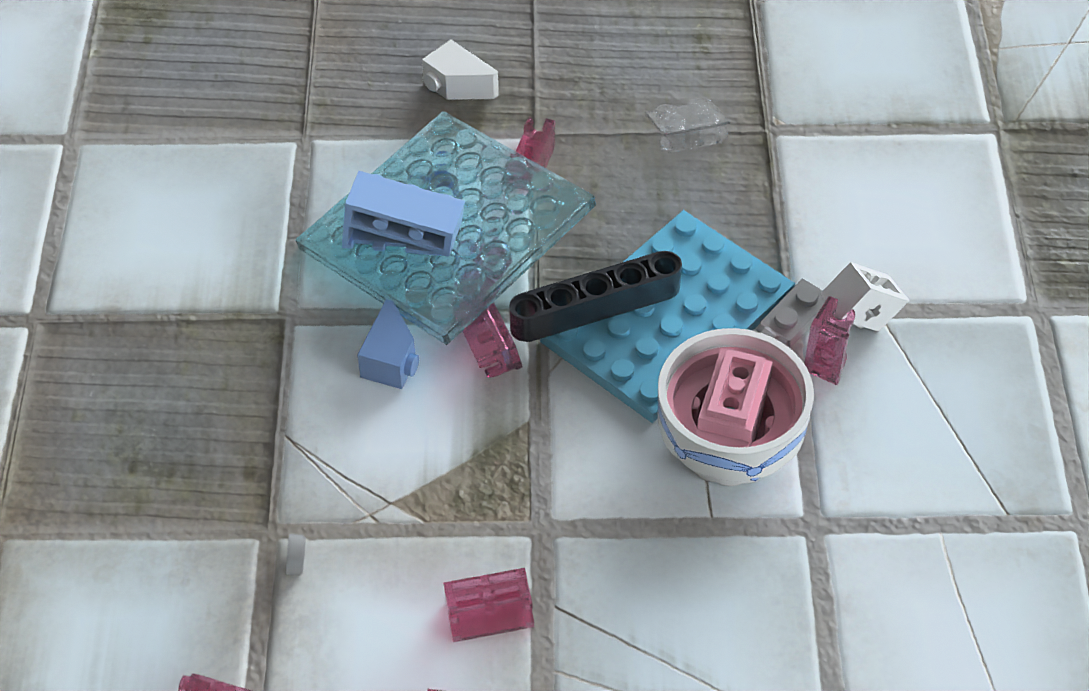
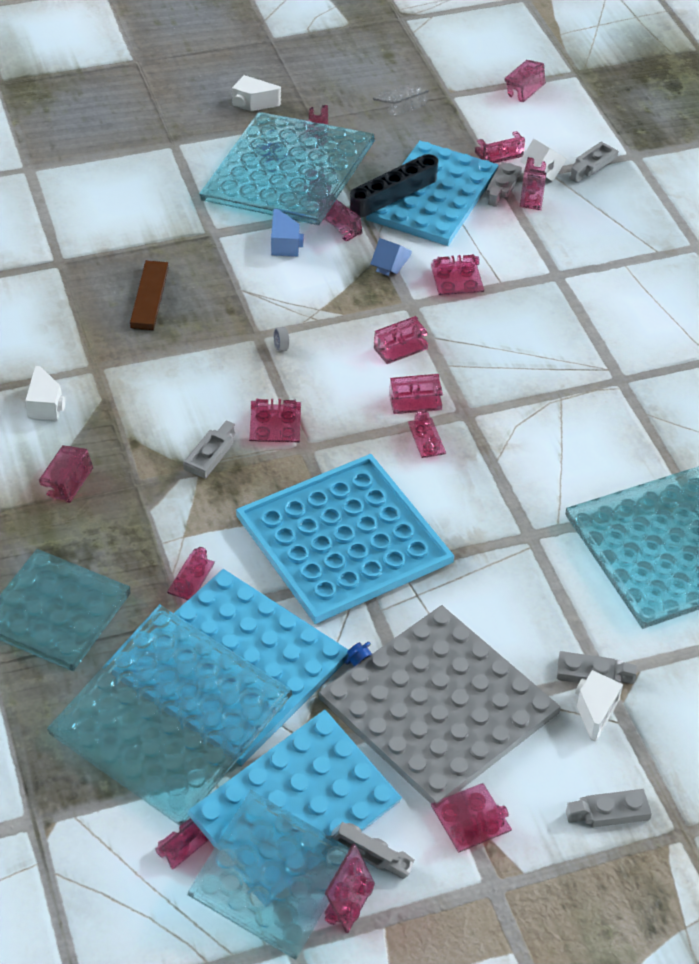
camera: 20 degrees left, 5 degrees down
(135, 415) = (149, 295): none -> reddish brown tile
(400, 216) = (267, 161): light blue wedge -> none
(540, 430) = (389, 257): none -> medium blue slope
(638, 493) = (457, 276): none -> clear pink hinge
(742, 372) = (497, 220): piece -> none
(811, 255) = (501, 150): none -> clear pink hinge
(902, 128) = (526, 79): none -> clear pink hinge
(958, 308) = (592, 161): none -> light grey hinge

